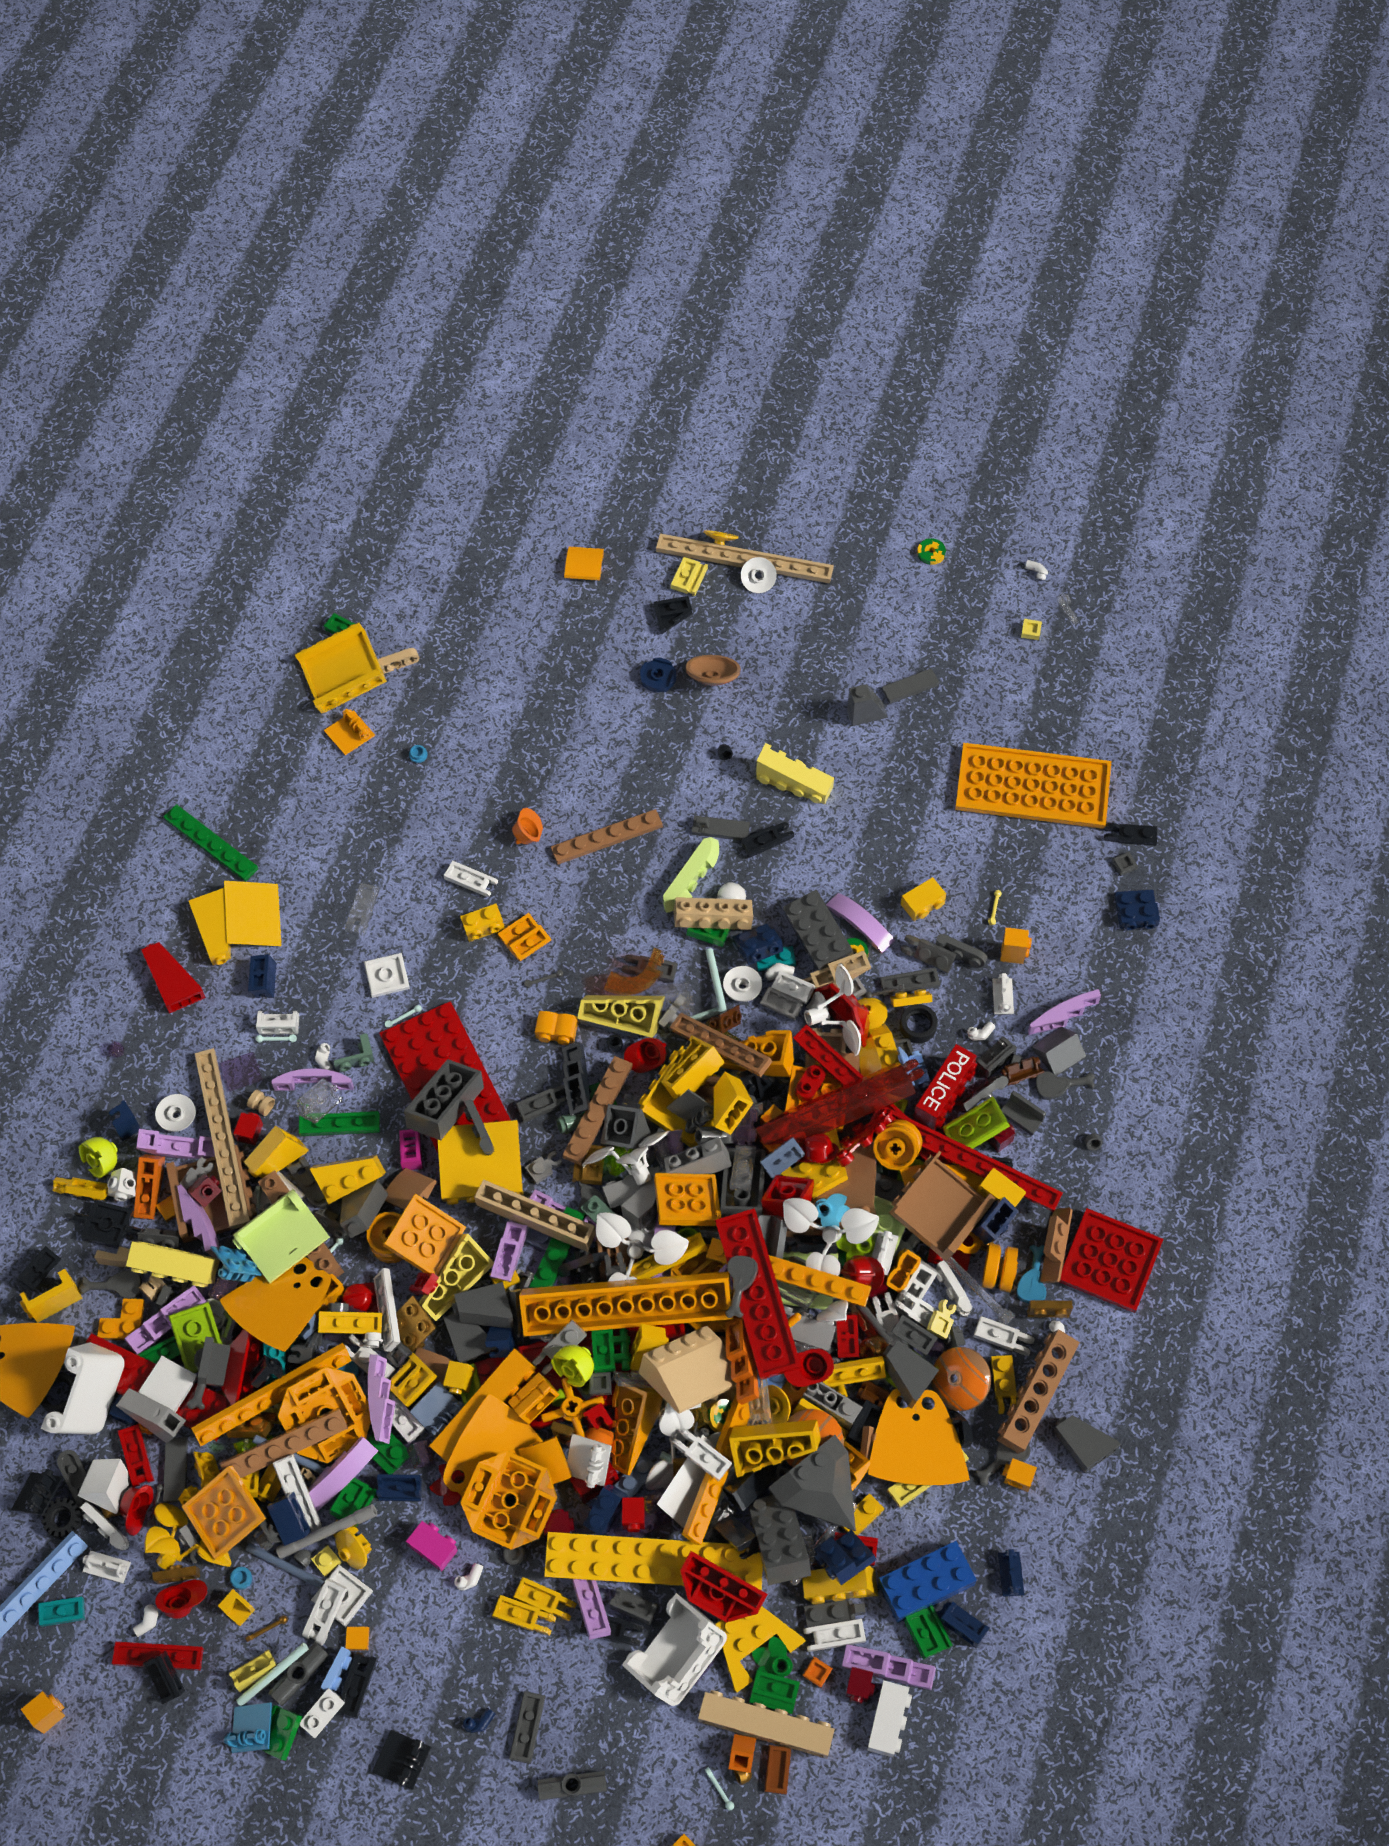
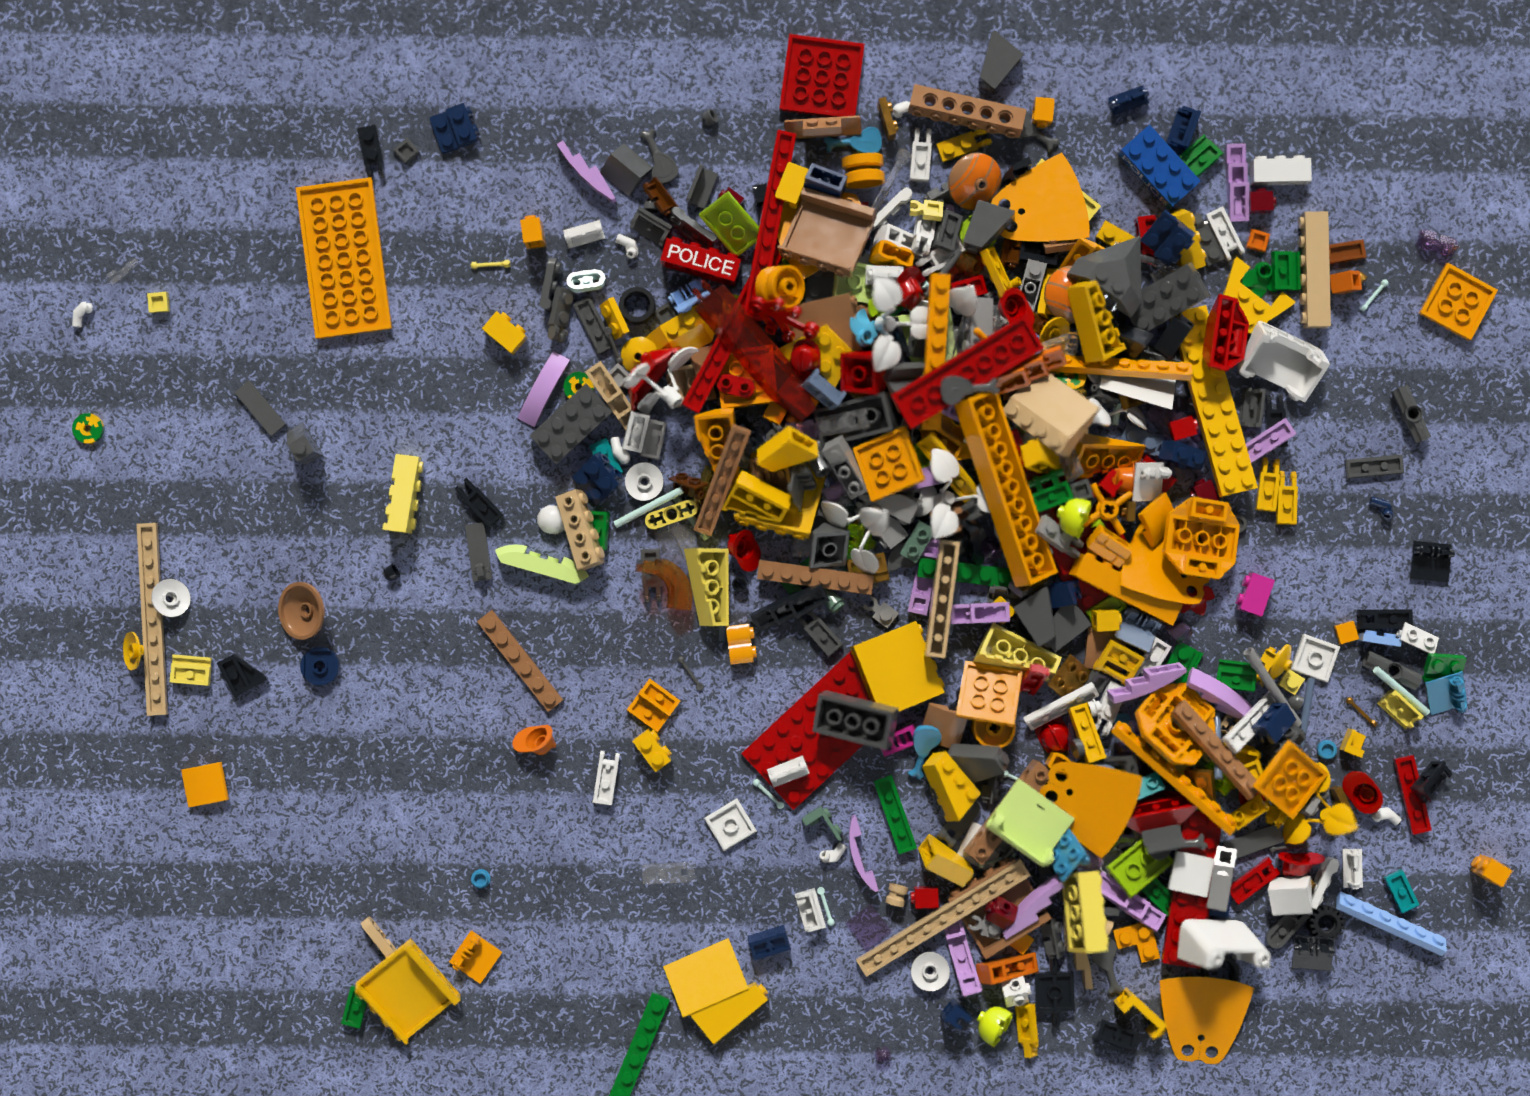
camera: 110 degrees left, 25 degrees up
(172, 980) = (797, 1029): red slope -> none
(263, 1369) = (1157, 790): black bracket -> none
(318, 1101) = (882, 840): clear hinge -> none
(324, 1611) = (1336, 666): white plate -> none
(399, 1487) = (1212, 640): dark blue hinge -> none
(400, 1165) = (924, 739): none -> dark azure piece
(417, 1033) = (788, 771): none -> white hinge
(470, 1580) = (1270, 553): white arm -> none
(479, 1128) = (875, 676): dark grey hinge -> none
(670, 1016) = (697, 539): light grey plate -> none
(698, 993) = (687, 514): none -> light yellow beam
(703, 1455) = (1121, 380): white hinge -> none
(955, 985) = (586, 280): none -> light aqua plate

